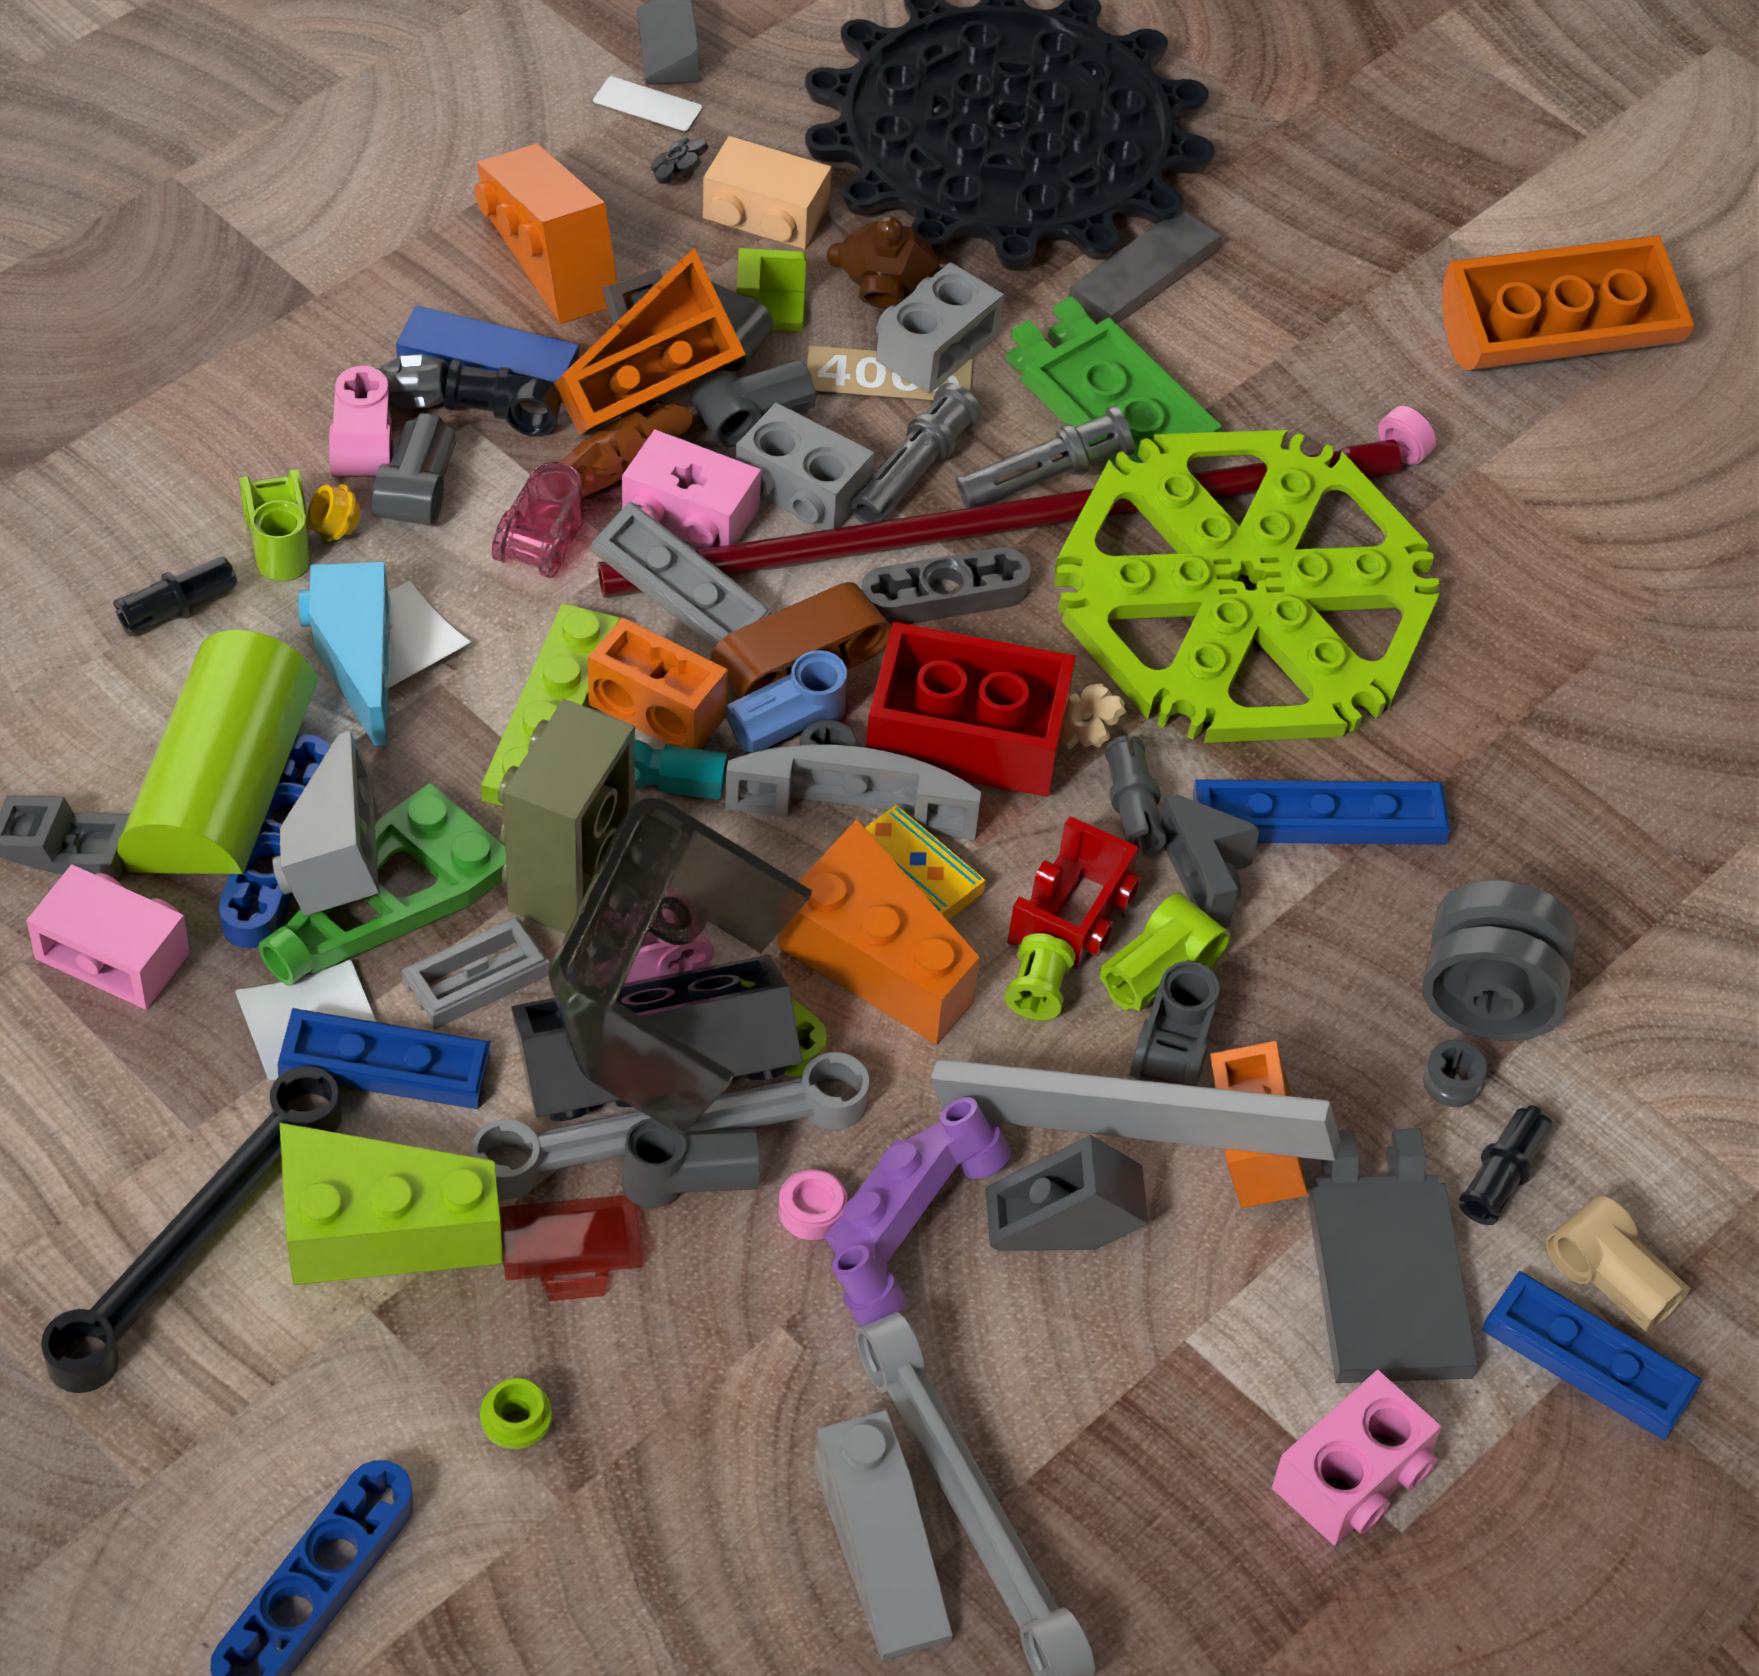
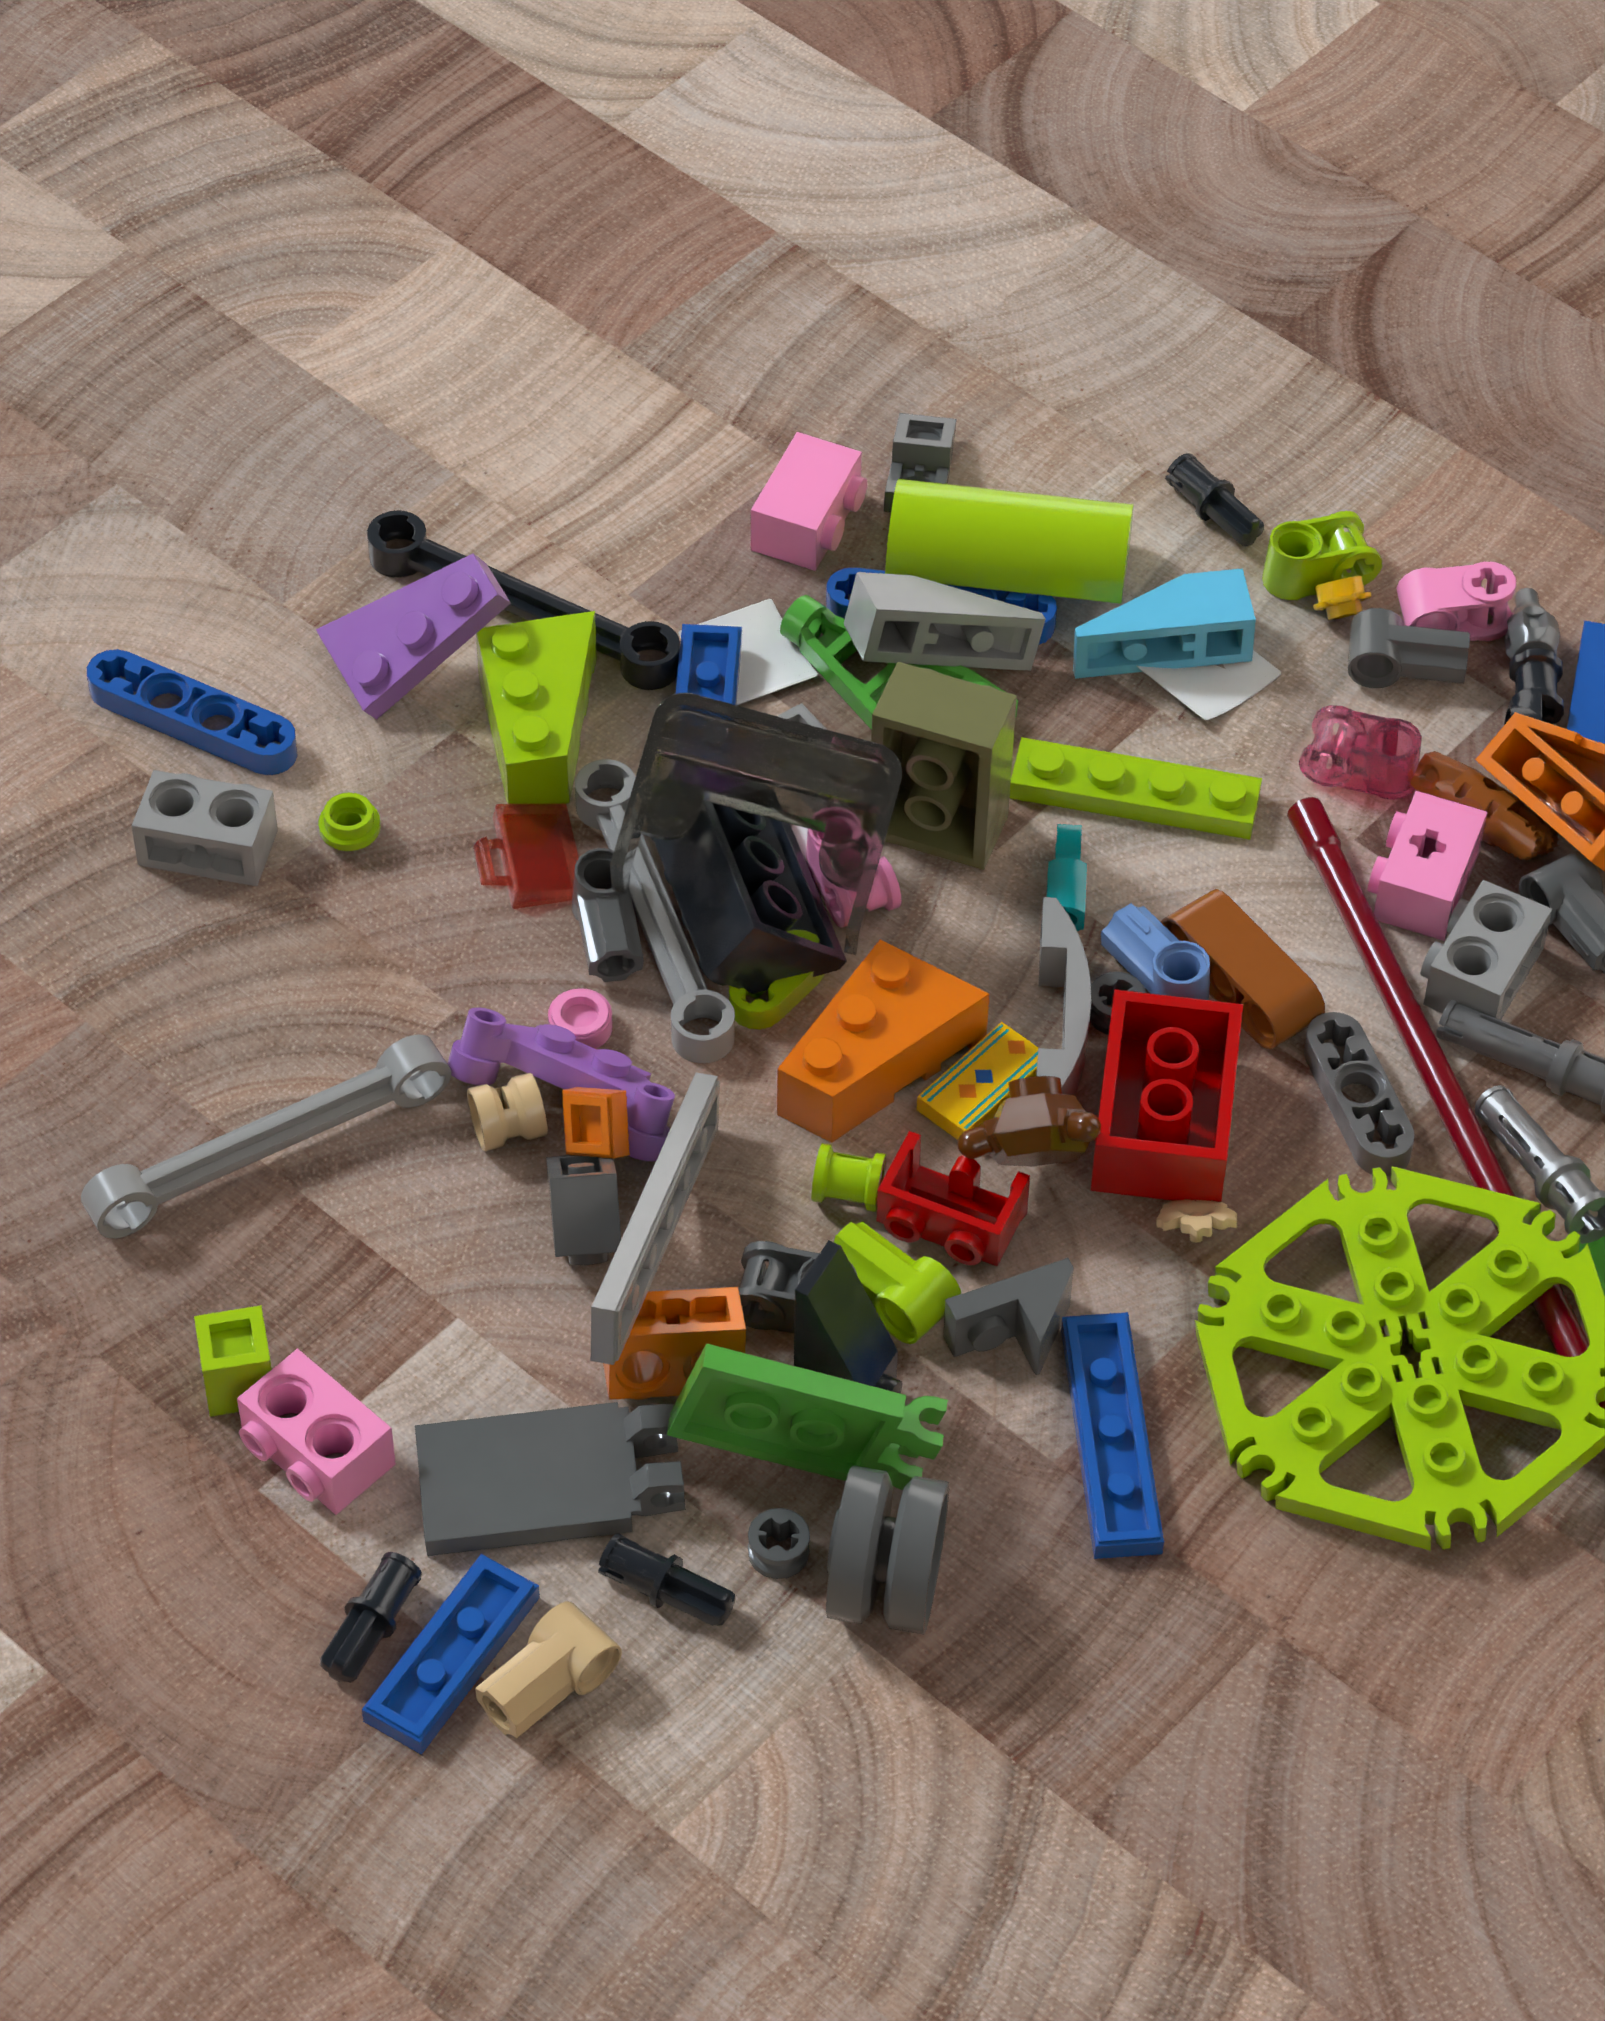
camera: 90 degrees right, 0 degrees up
(264, 1320) = (412, 631): none -> medium lavender wing
(527, 1560) = (205, 827): none -> light grey brick
(657, 686) = (1148, 842): orange brick -> none
(676, 575) = (1305, 856): light grey tile -> none
(881, 1533) = (235, 1072): light grey slope -> none
(948, 1266) = (507, 1111): none -> tan wheel
(976, 1179) = (596, 1122): none -> orange tile
(1024, 796) = (1033, 1126): none -> reddish brown rock
(1135, 794) = (1102, 1256): dark grey pin -> none
(1279, 980) = (839, 1326): none -> black slope
(1279, 1529) = (231, 1355): none -> lime panel
(1370, 1005) = (803, 1417): none -> bright green tile
(1565, 1419) = (370, 1617): none -> black axle

